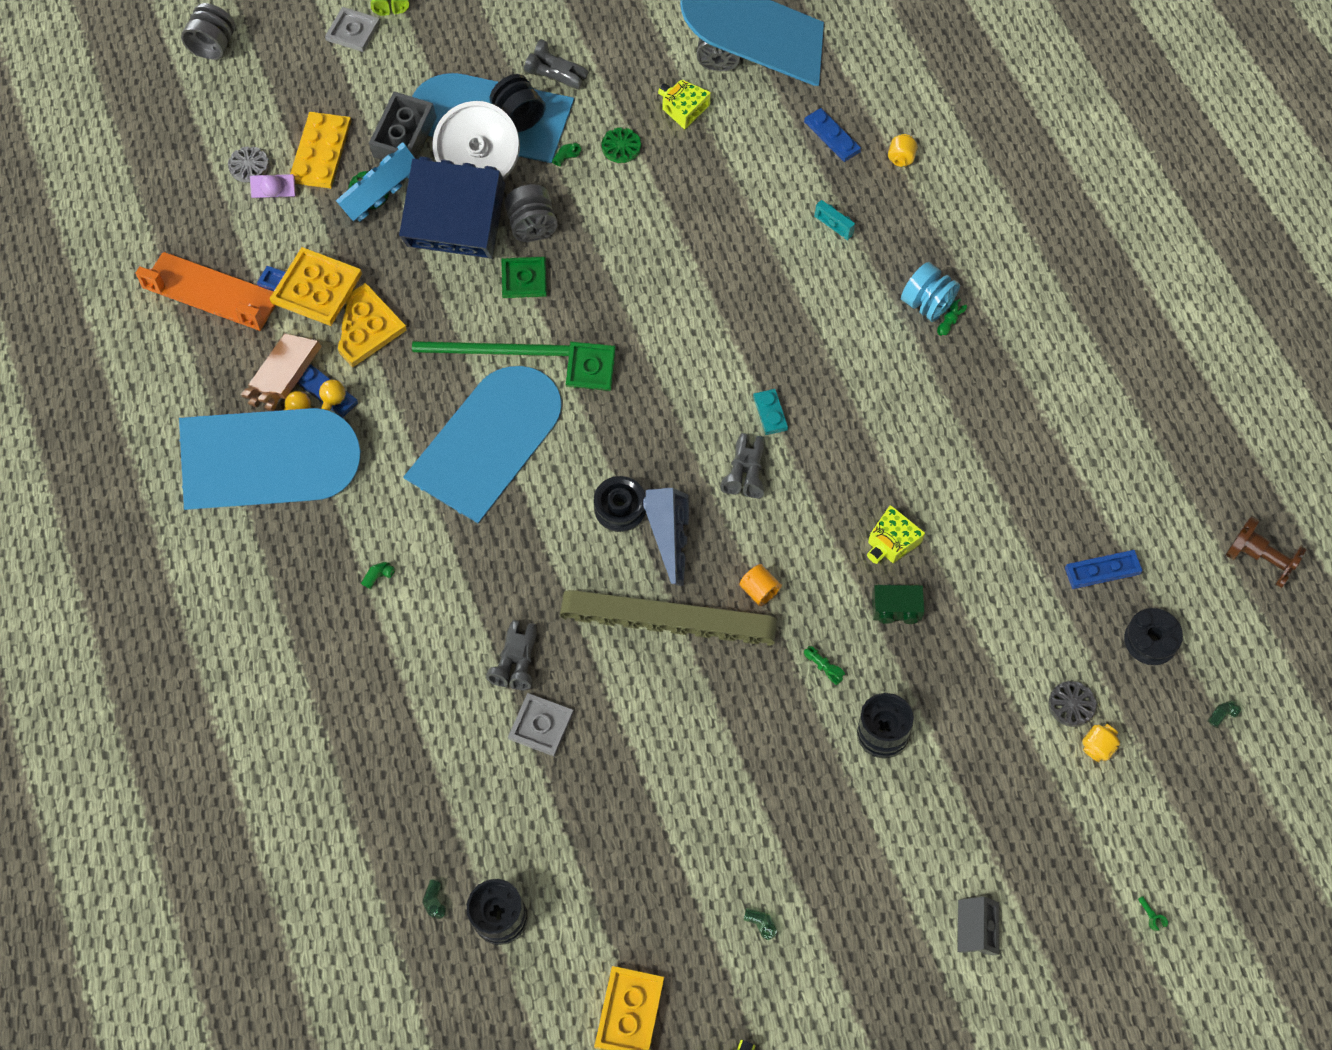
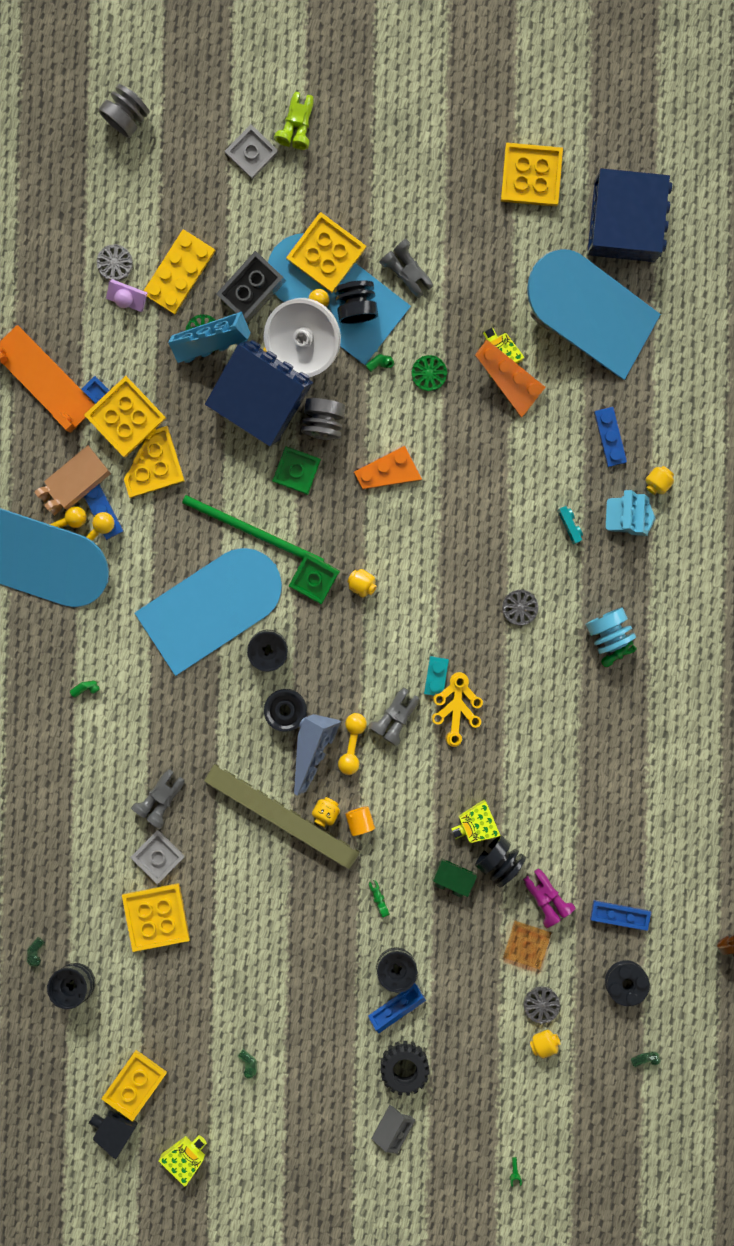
camera: 25 degrees right, 25 degrees up
(465, 77) = (326, 252): none -> yellow plate
(568, 793) = (155, 917): none -> yellow plate
(574, 436) = (257, 655): none -> black wheel
(621, 241) = (388, 470): none -> orange wing
(644, 350) = (362, 583): none -> yellow head
(706, 113) = (514, 382): none -> orange wing
(716, 592) = (325, 812): none -> yellow head
(717, 531) = (355, 725): none -> yellow piece
(809, 431) = (457, 706): none -> yellow plant
(824, 314) = (520, 607): none -> flat silver wheel
(889, 187) = (630, 514): none -> medium azure piece
(907, 776) = (396, 1008): none -> blue plate
(940, 559) = (504, 864): none -> black wheel
(943, 857) = (409, 1083): none -> black tyre
(1008, 580) = (546, 893): none -> magenta piece
(1018, 645) = (527, 944): none -> clear orange tile

